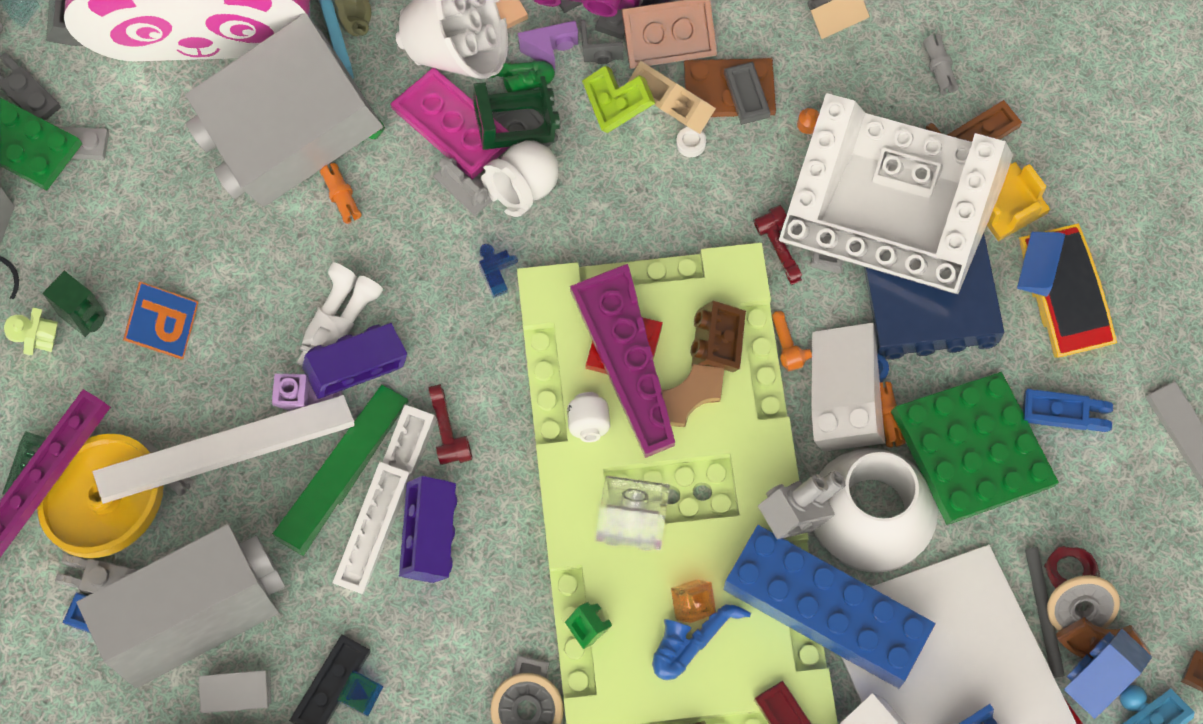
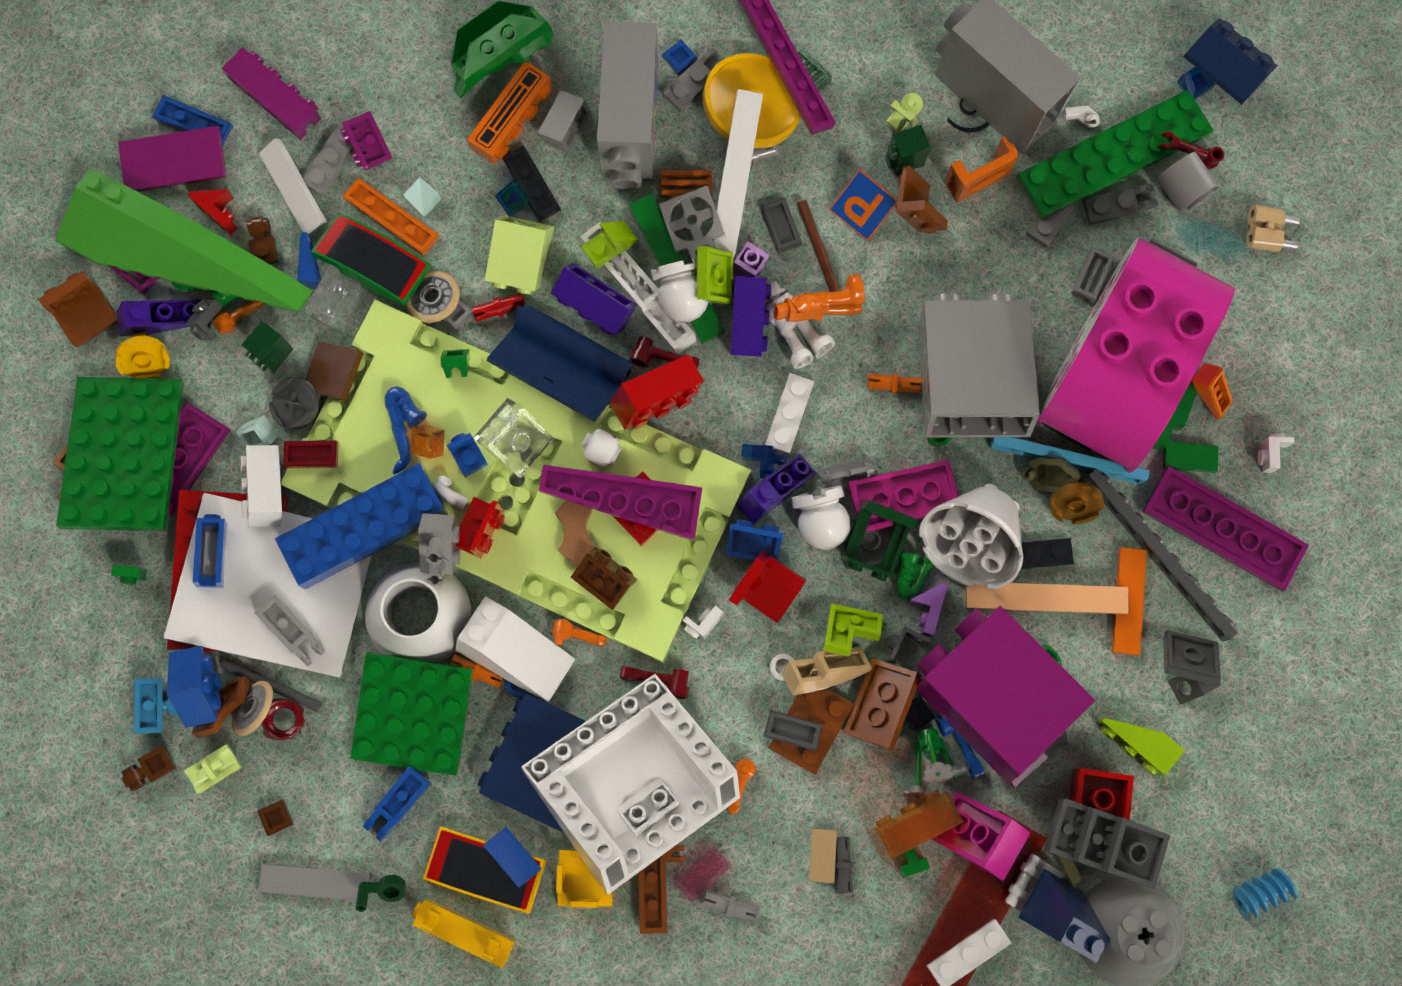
camera: 120 degrees right, 10 degrees up
(81, 231) = (964, 184): none -> orange panel
(111, 81) = (1085, 293): none -> light grey tile
(145, 248) = (914, 206): none -> dark orange bracket
(223, 495) = (683, 183): none -> orange tile
(229, 394) = (781, 225): none -> dark grey tile
(233, 344) = (818, 246): none -> copper bar
(278, 273) = (815, 305): none -> orange piece
(301, 448) = (699, 239): none -> light grey piece
(332, 404) = (714, 275): none -> lime tile
(354, 552) = (613, 240): none -> lime slope
(369, 432) = (679, 291): none -> white tile
(420, 641) = (518, 253): none -> yellowish green slope
(432, 273) = (789, 413): none -> white plate
(495, 395) = (656, 392): none -> red brick
(495, 630) = (497, 307): none -> red pin
(519, 521) = (561, 362): none -> dark blue door
(529, 240) = (775, 488): none -> dark purple slope
(587, 225) = (749, 542): none -> blue bracket
(624, 191) = (768, 586): none -> red bracket
(680, 550) = (466, 454): none -> blue bracket
(693, 226) = (708, 621): none -> white bracket
(736, 542) = (448, 495): none -> white arm
(744, 483) = (479, 526): none -> red bracket
(929, 104) = (702, 874): none -> clear pink tile
(981, 620) = (287, 628): none -> light grey hinge
(1136, 274) = (463, 932): none -> yellow brick
(1148, 367) = (389, 888): none -> dark green plate
(1165, 521) = (275, 817): none -> reddish brown tile
(1168, 607) = (213, 769): none -> yellowish green hips

